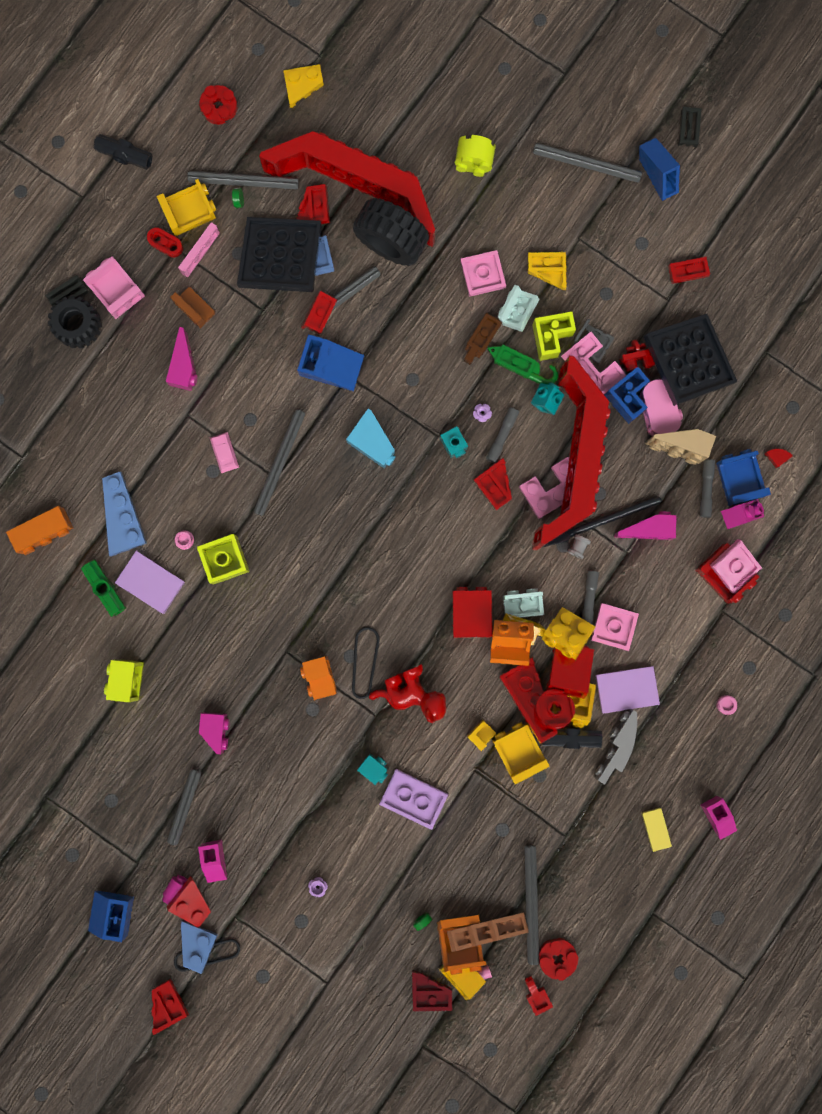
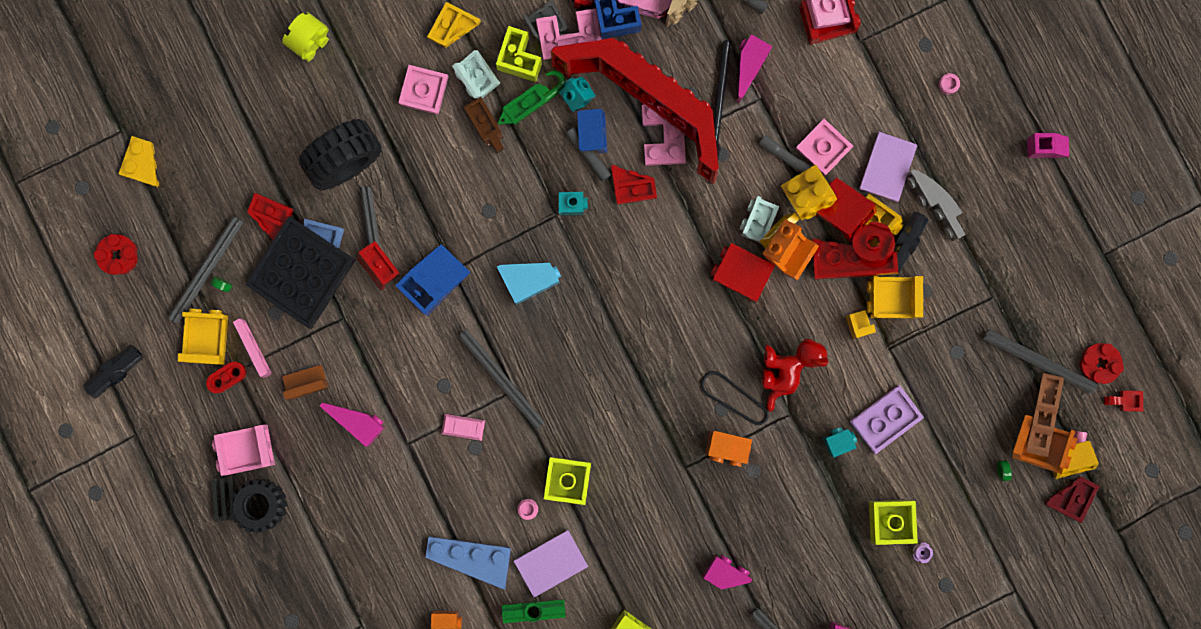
camera: 65 degrees left, 0 degrees up
(329, 848) = (893, 522): none -> neon yellow brick
(352, 169) = (257, 157): red slope -> none
(482, 417) = (551, 161): lavender plate -> none
(523, 427) = (592, 130): none -> blue panel
(579, 546) = (732, 139): light grey bush -> none
(656, 829) = (1029, 209): light yellow tile -> none

